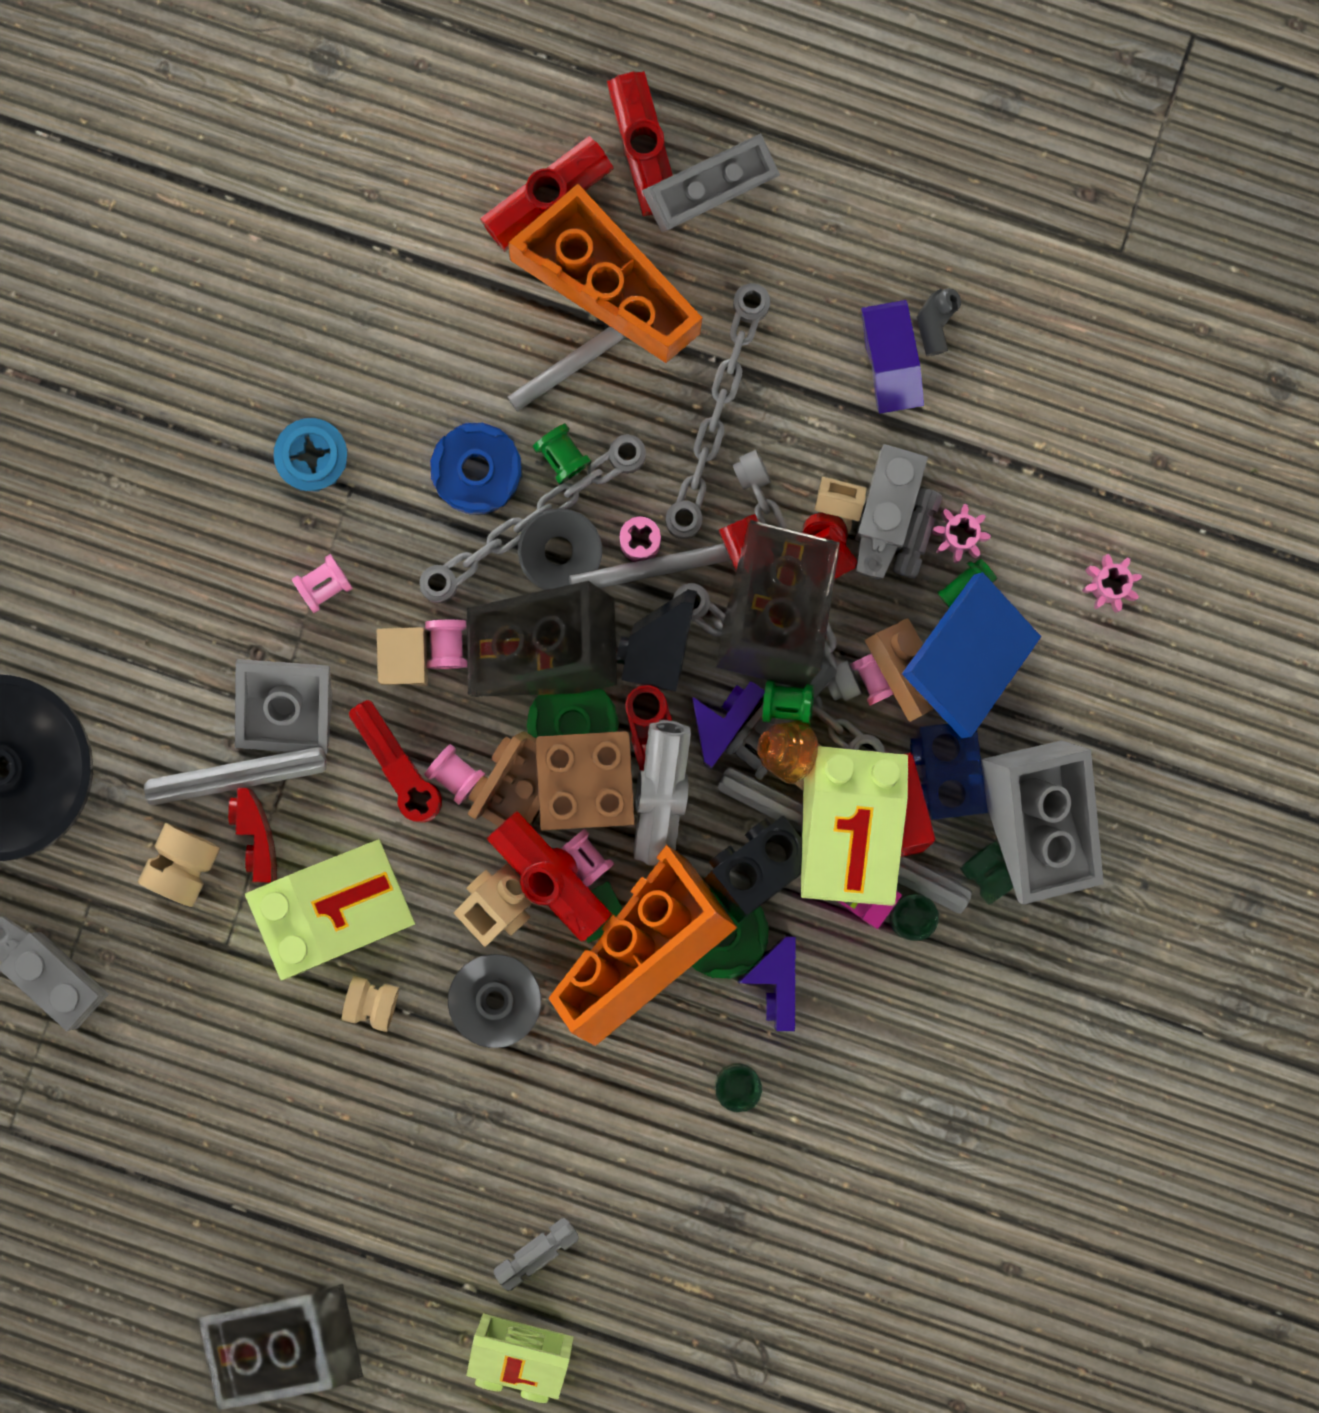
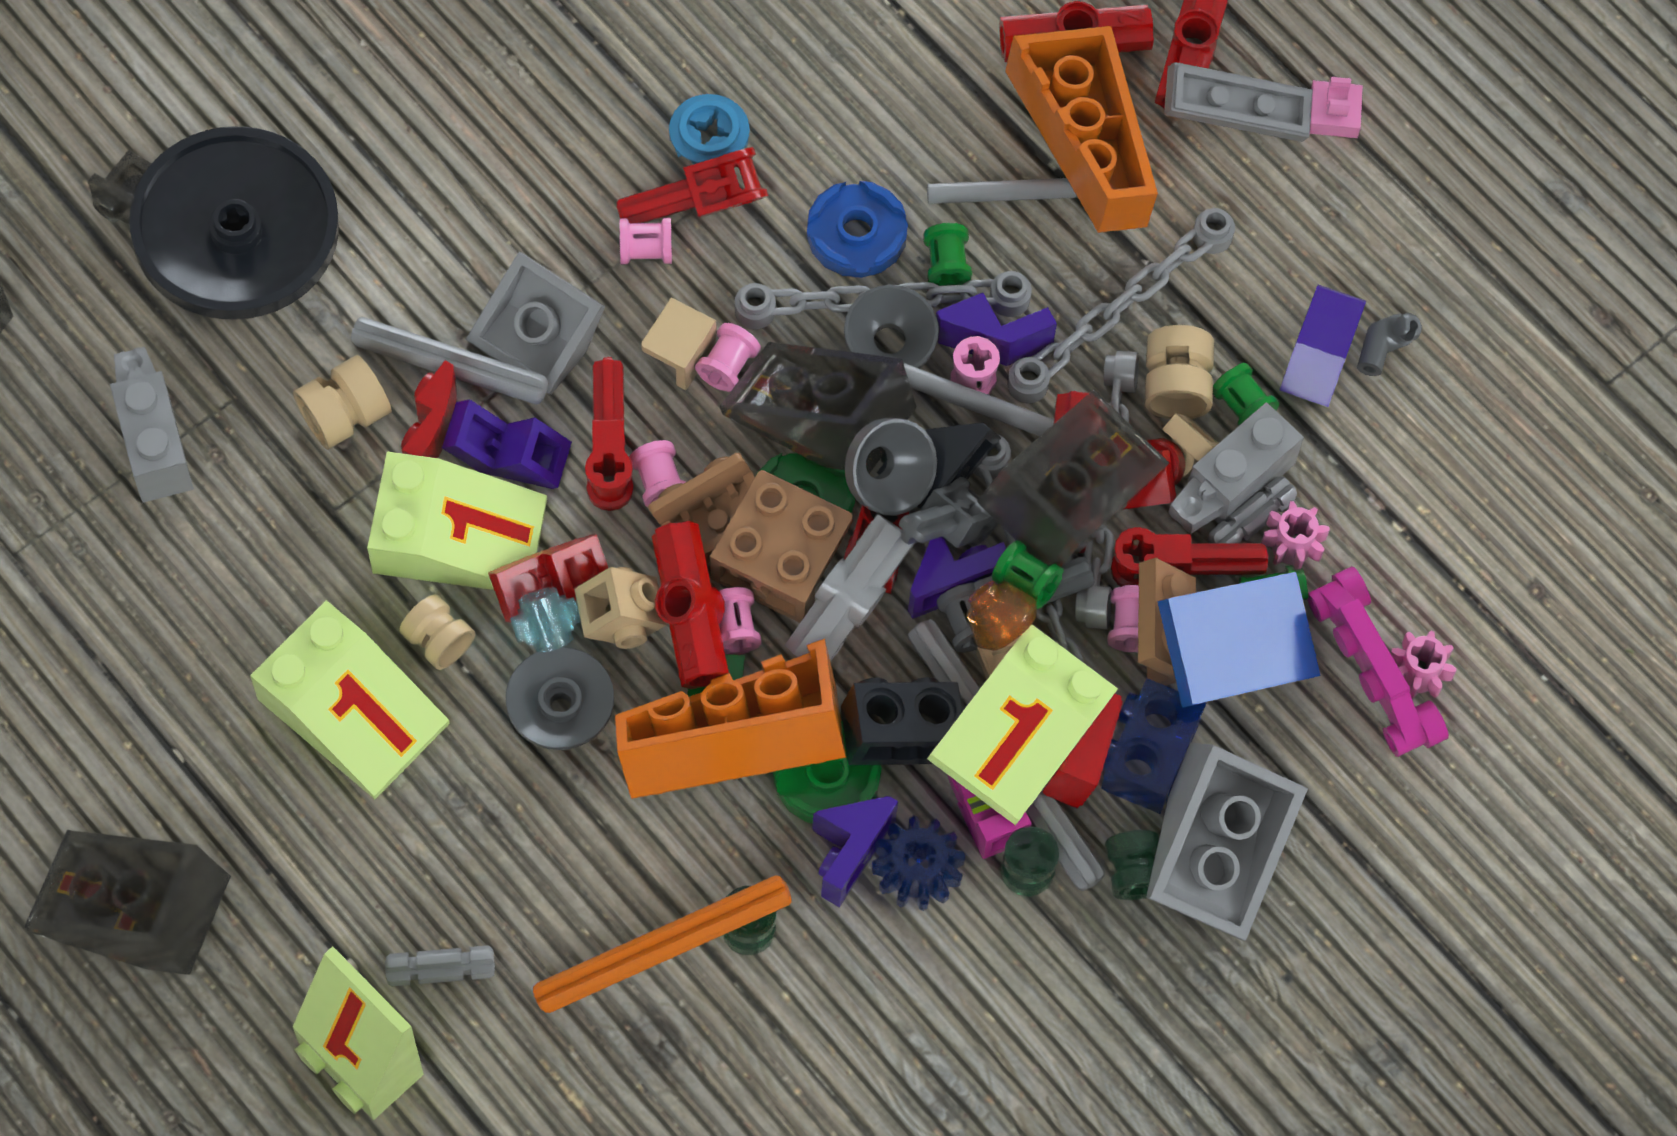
camera: 30 degrees right, 20 degrees down
(324, 820) = (515, 451): none -> dark purple slope
(340, 1097) = (348, 700): none -> yellowish green slope
(342, 508) = (707, 187): none -> red connector
(425, 908) = (558, 567): none -> red slope
(446, 949) = (545, 619): none -> clear light blue gear
(621, 504) = (1013, 340): none -> dark purple slope
(647, 686) = (908, 470): none -> dark grey piece
(691, 1150) = (662, 944): none -> orange axle
(699, 687) = (950, 514): none -> dark grey connector
(786, 134) = (1336, 108): none -> bright pink tile
(805, 464) = (1179, 371): none -> tan wheel
(838, 982) = (920, 845): none -> clear blue gear
(858, 437) = (1242, 392): none -> green bush
(893, 602) = (1187, 557): none -> red connector
(1128, 636) = (1380, 678): none -> dark pink plate

